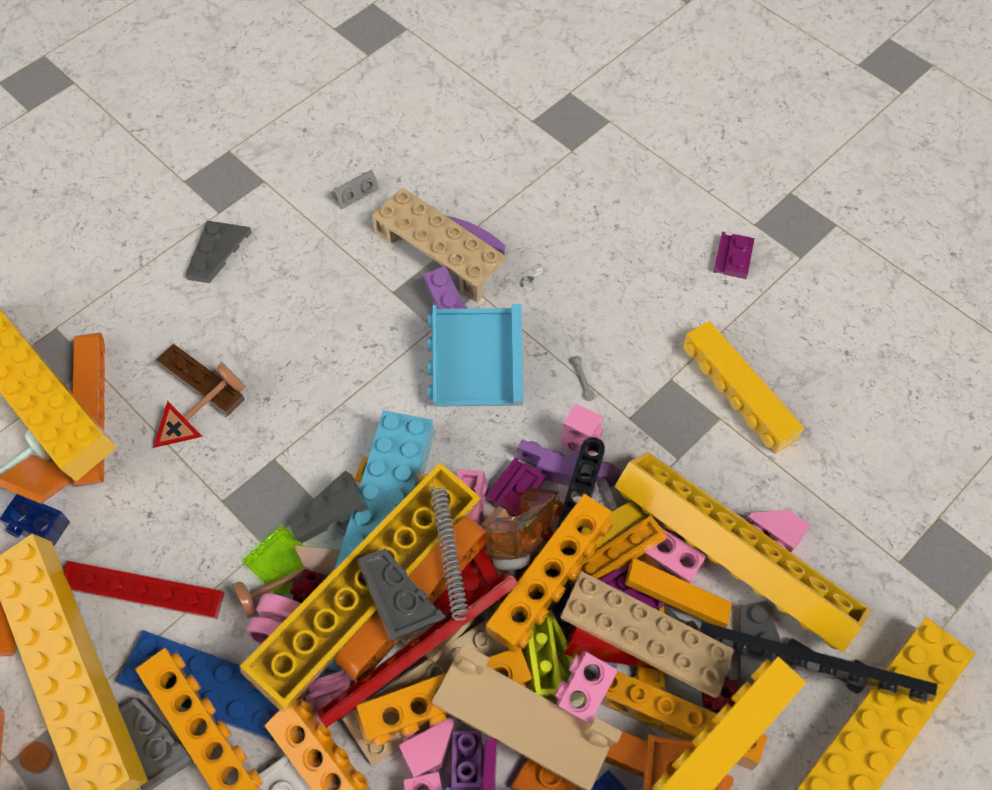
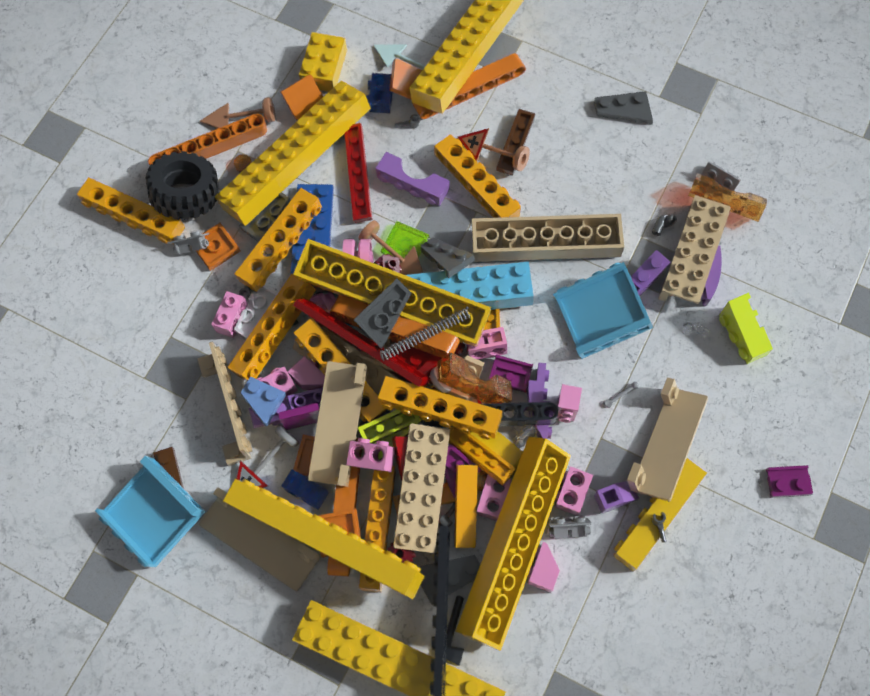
camera: 75 degrees right, 10 degrees up
(101, 497) = (411, 123): none -> dark grey hand
(165, 542) = (431, 189): none -> medium lavender arch
(222, 452) = (478, 189): none -> light orange brick
(351, 388) = (547, 237): none -> tan brick
(385, 263) = (663, 222): none -> dark grey arm
(403, 174) = (743, 204): none -> clear orange arch
(551, 229) = (744, 329): none -> neon yellow wedge
(663, 345) = (669, 443): none -> tan bracket
(693, 462) = (578, 492): none -> bright pink brick
(710, 424) = (615, 496): none -> medium lavender slope
(732, 475) = (577, 525): none -> light grey hinge
(753, 388) = (659, 524): none -> dark grey hand

